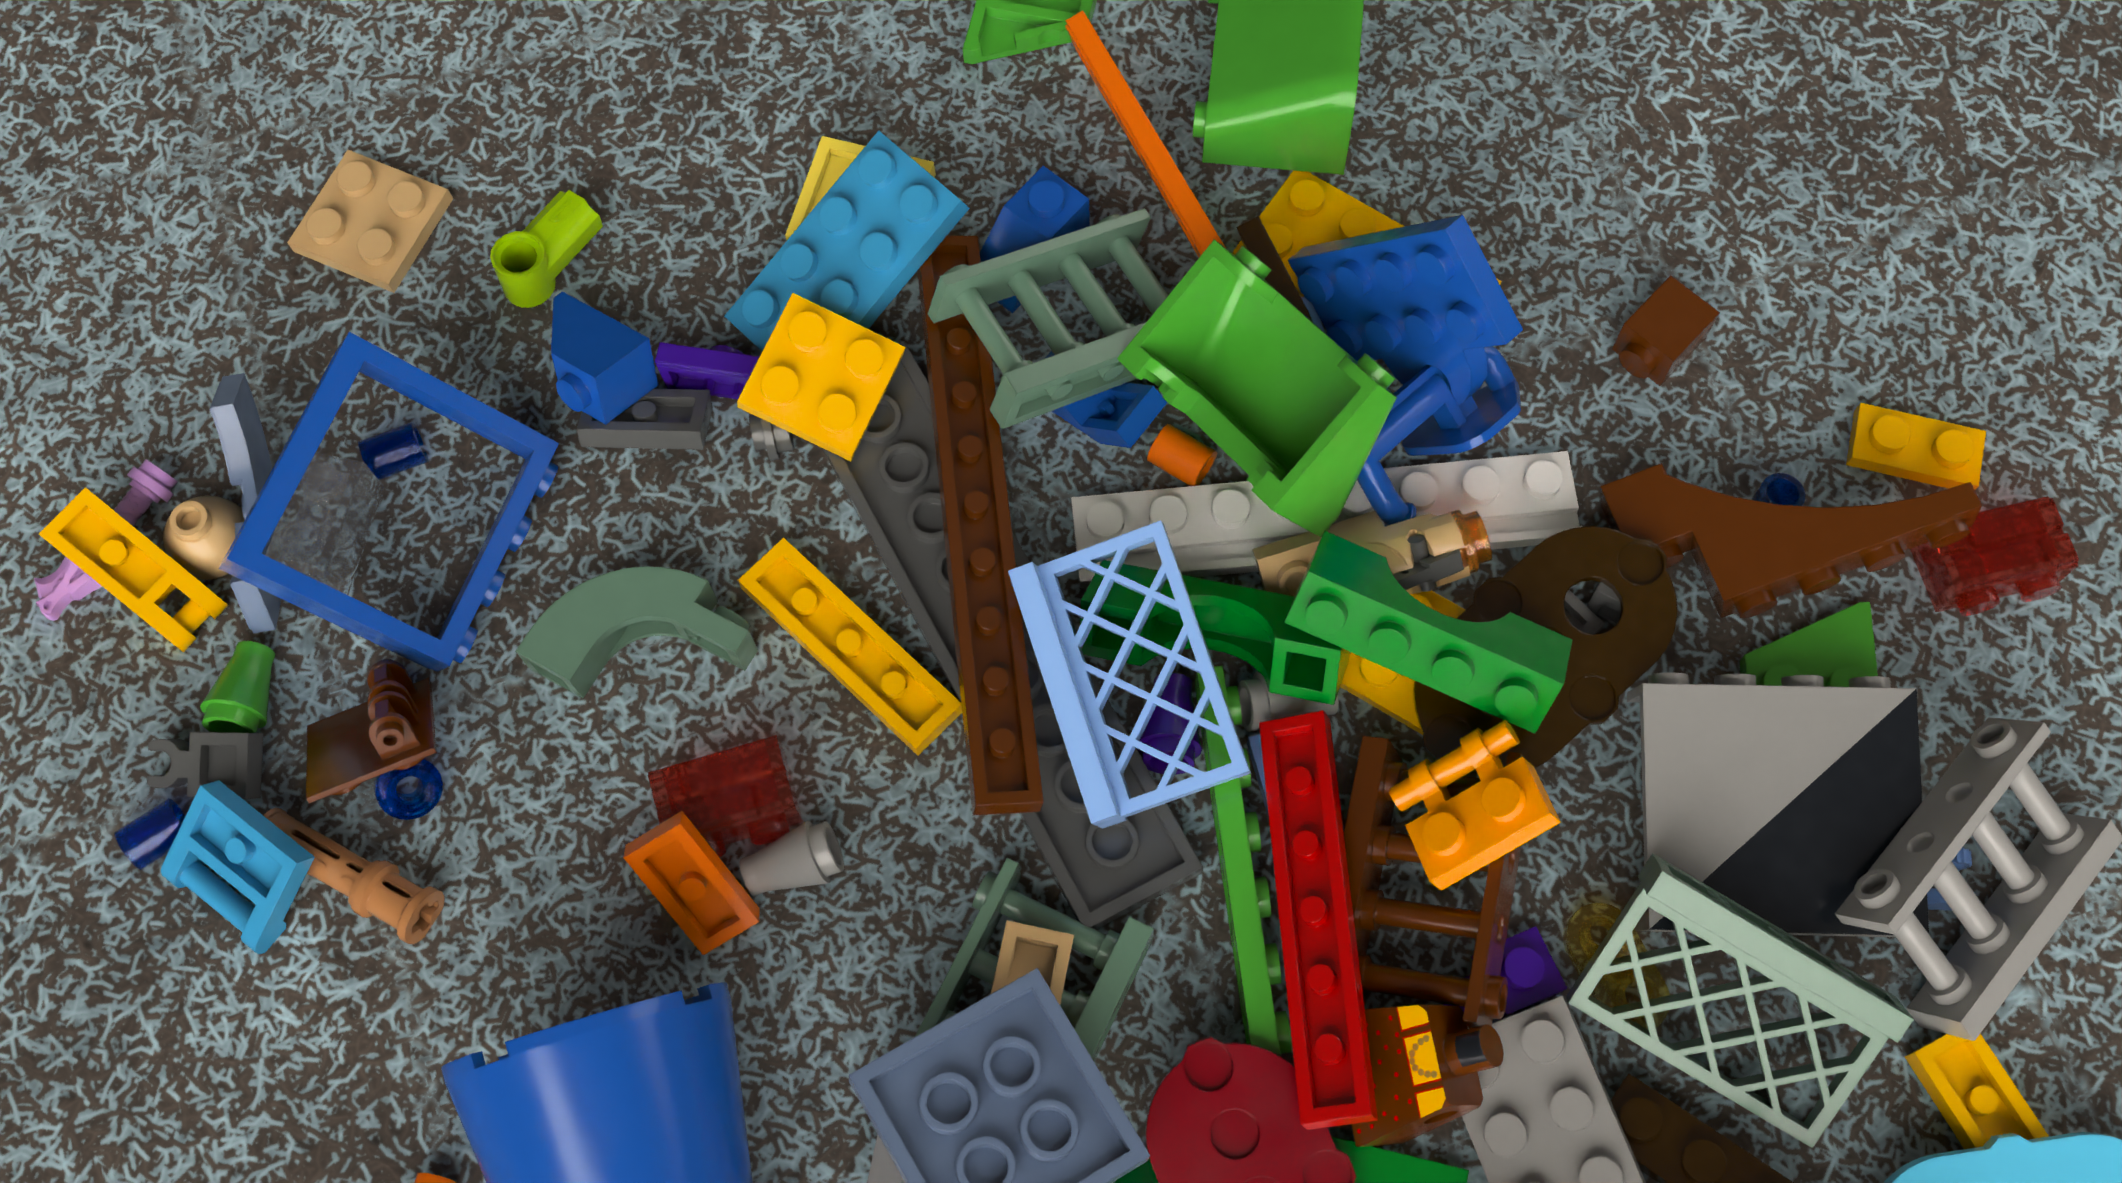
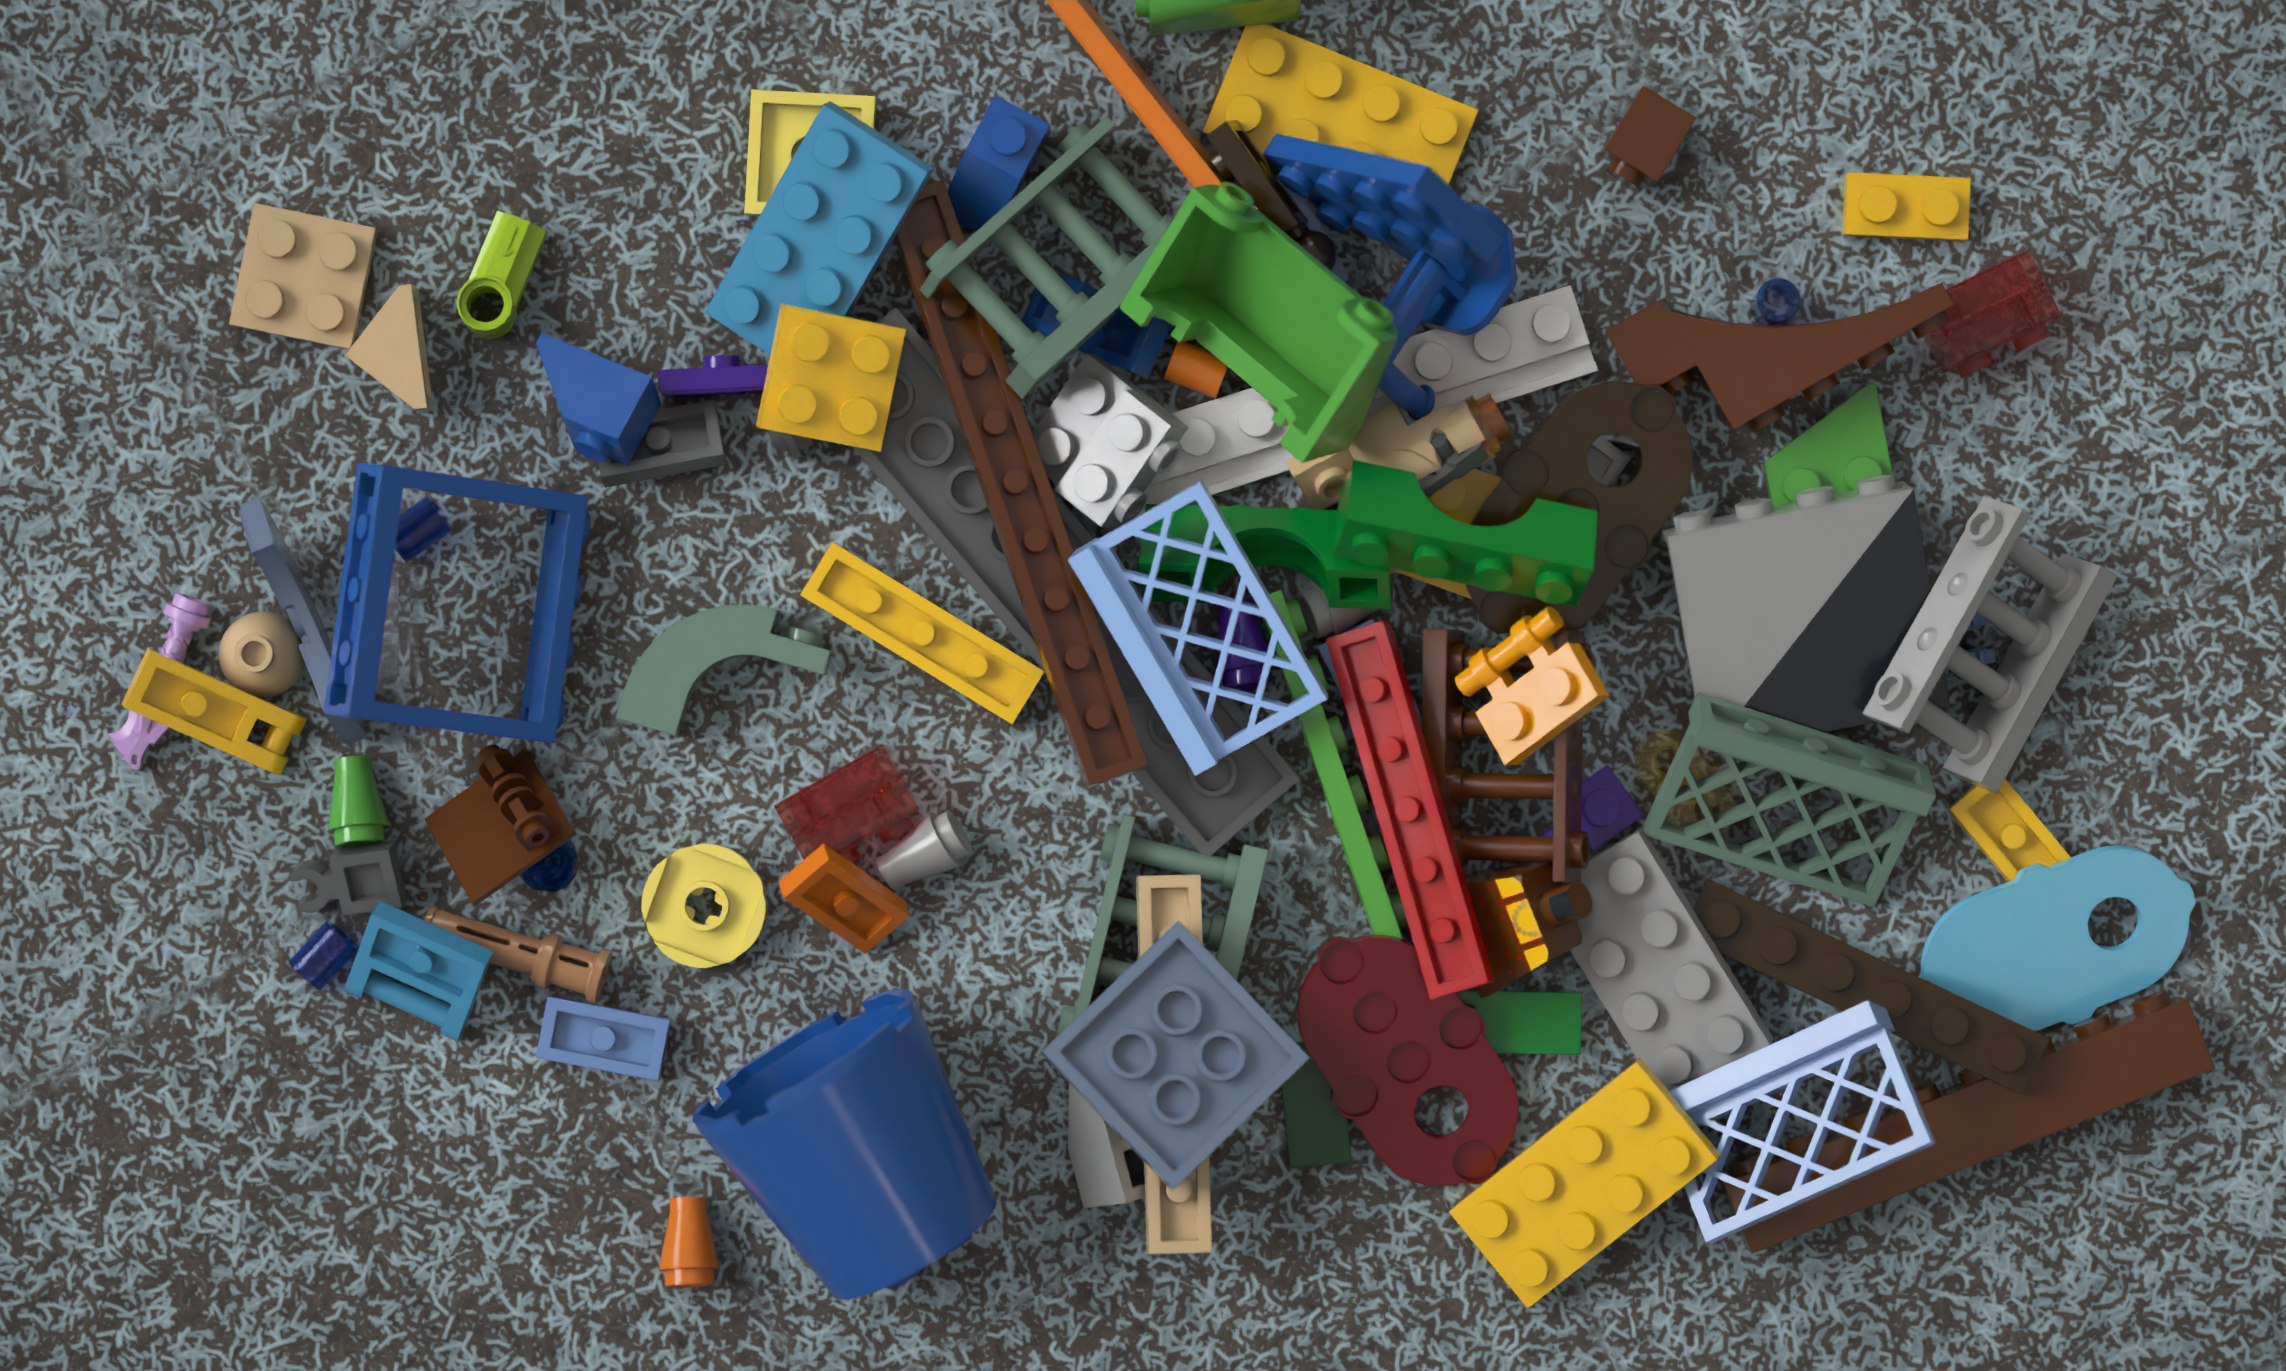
camera: 15 degrees left, 20 degrees up
(405, 982) = (603, 1038): none -> medium blue plate
(430, 285) = (395, 349): none -> tan slope
(563, 903) = (672, 920): none -> light yellow plate
(1077, 491) = (1106, 442): none -> light grey plate

